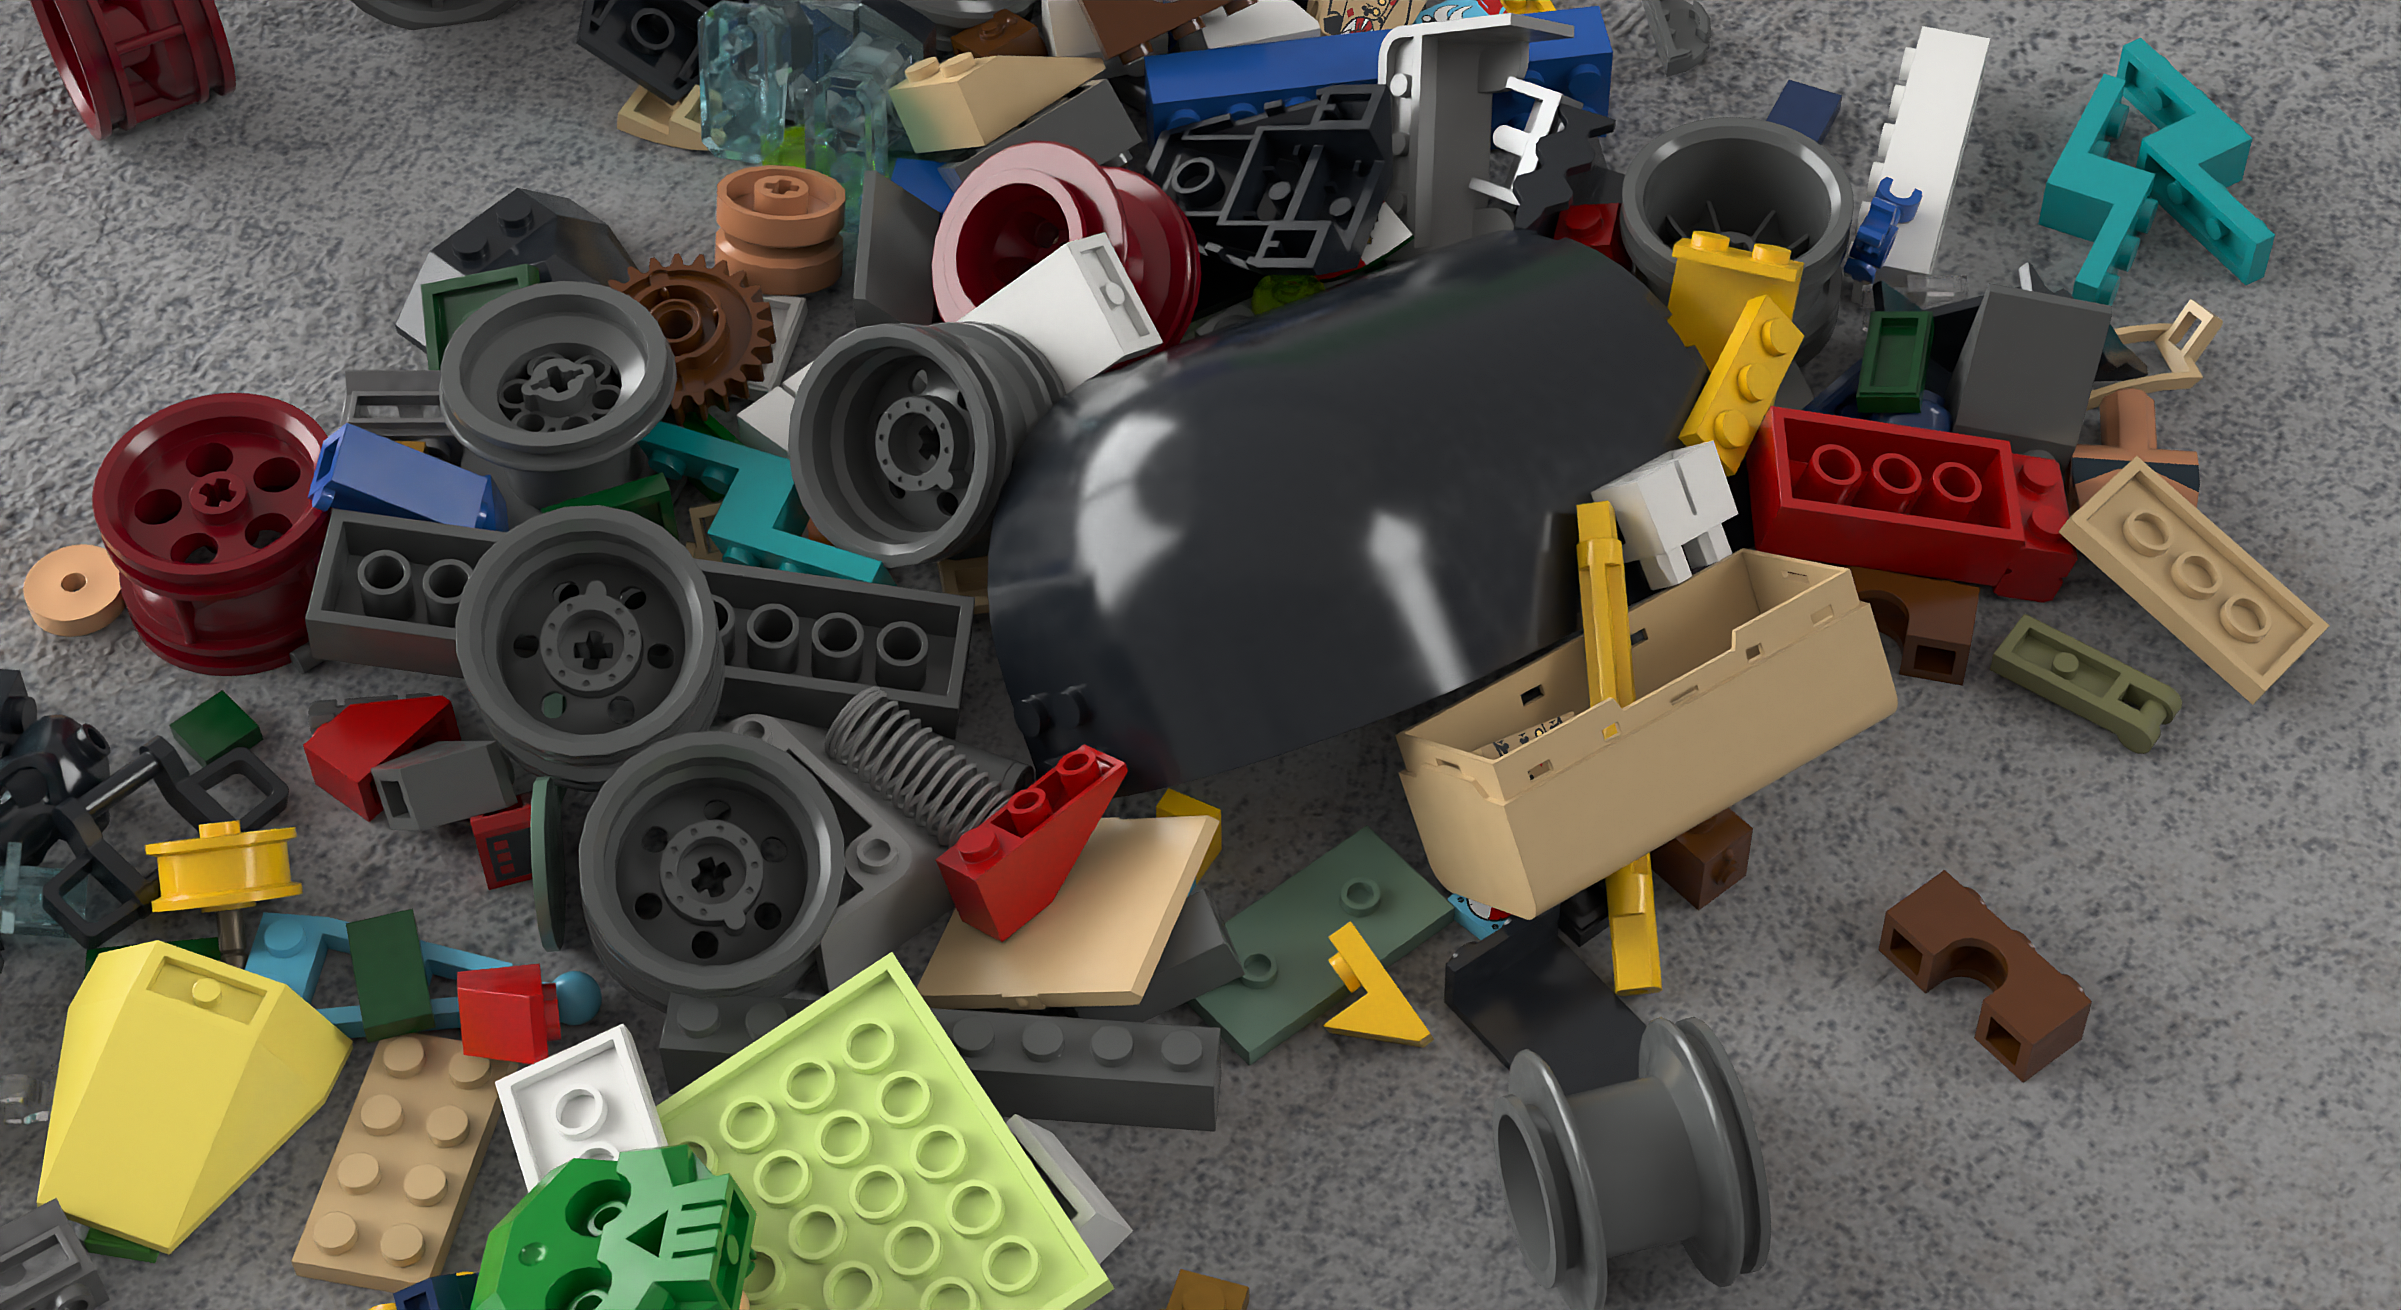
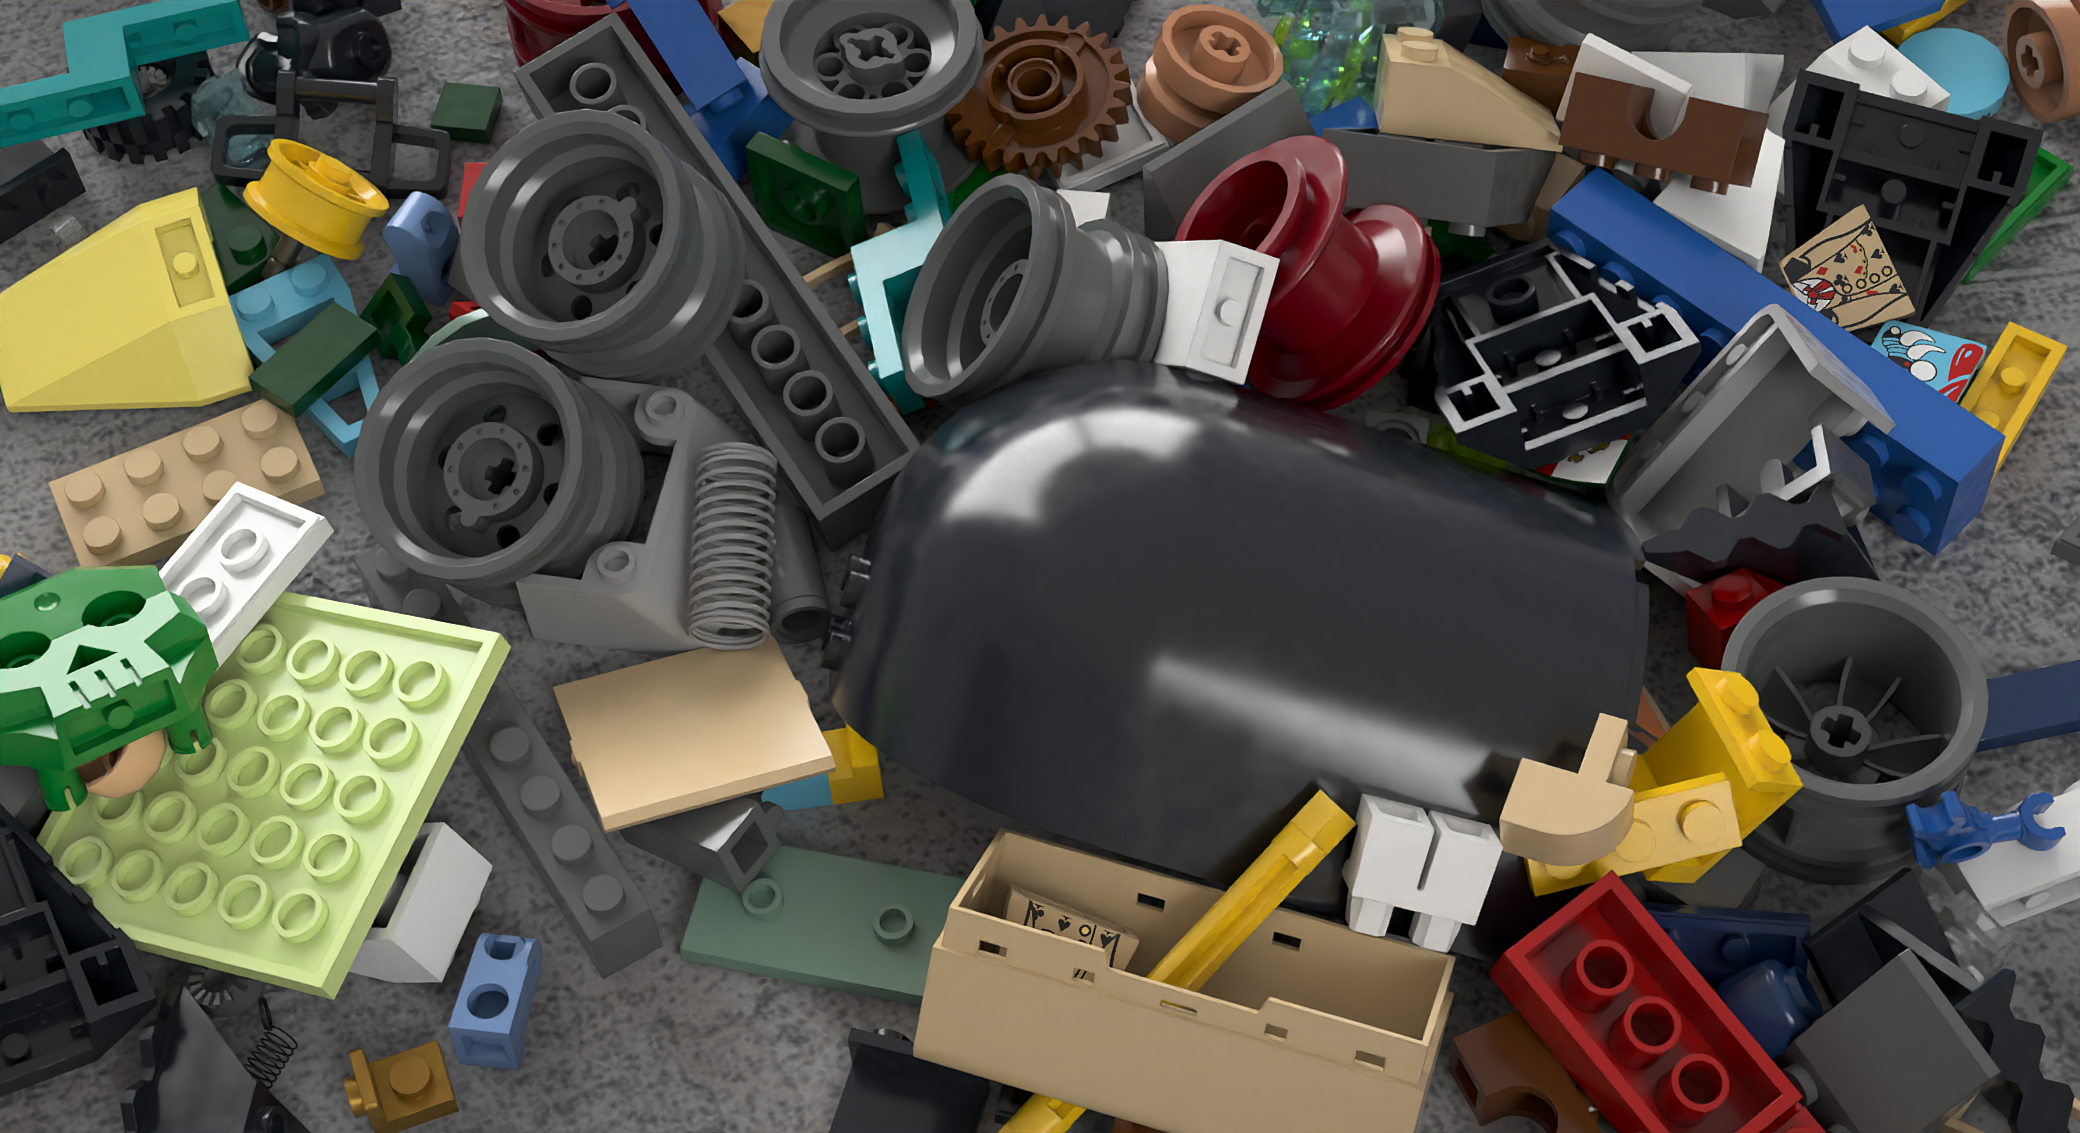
camera: 55 degrees right, 5 degrees up
(362, 837) = (424, 243): none -> medium blue leg
(402, 886) = (399, 318): none -> dark green plate
(507, 1013) = (314, 448): red slope -> none
(1027, 848) = (706, 657): red slope -> none
(1184, 1203) = (496, 1001): none -> medium blue leg
(1384, 1010) = (792, 1013): yellow slope -> none
(1722, 377) = (1570, 815): none -> tan brick
(1895, 362) = (1807, 942): dark green tile -> none

